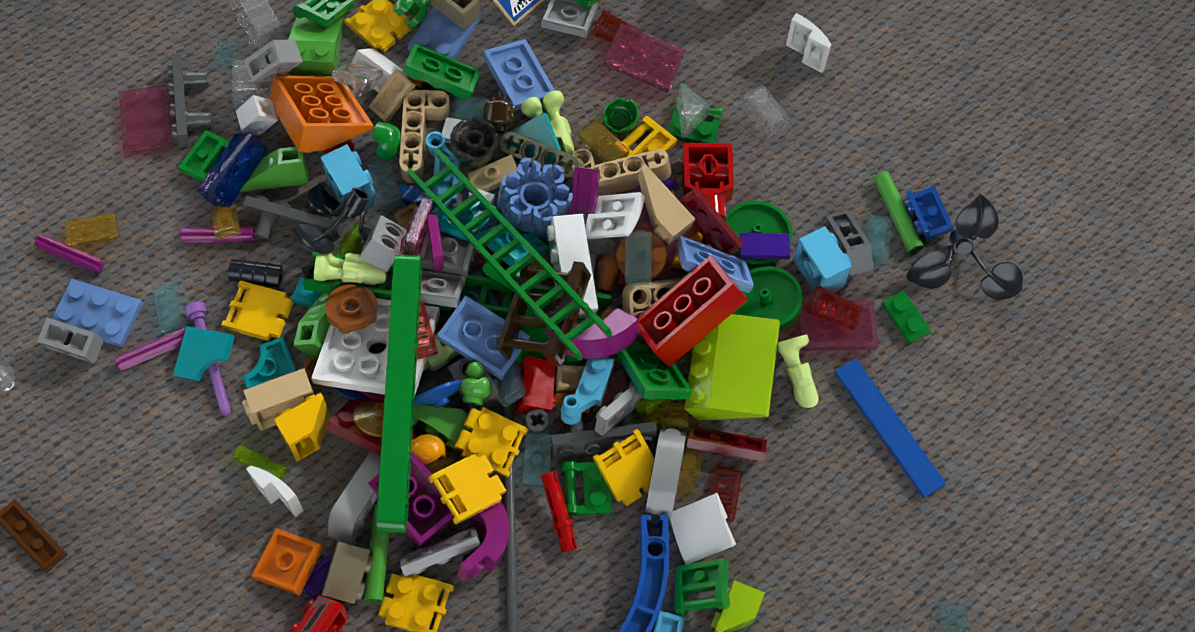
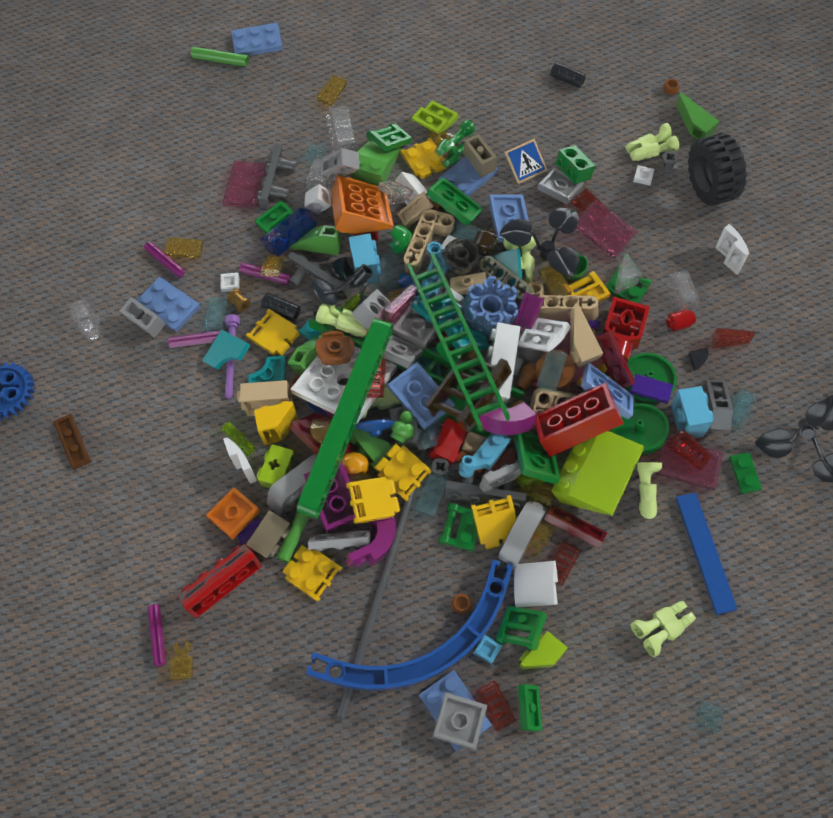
camera: 25 degrees right, 0 degrees up
(172, 259) = (229, 282): none -> white tile
(194, 281) = (245, 301): none -> pearl gold bush
(319, 471) = (275, 456): none -> lime brick
(435, 242) = (408, 319): magenta tile -> none
(560, 516) = (434, 542): red pin -> none
(590, 59) = (564, 219): none -> black plant
(618, 582) = (461, 604): none -> dark orange plate
(773, 149) = (680, 320): none -> red brick
(808, 191) = (698, 358): none -> black tile
(838, 155) = (731, 337): none -> clear red slope
(875, 527) = (667, 621): none -> yellowish green piece
(898, 212) = (763, 392): bright green piece -> none
(929, 213) = (788, 399): blue bracket -> none

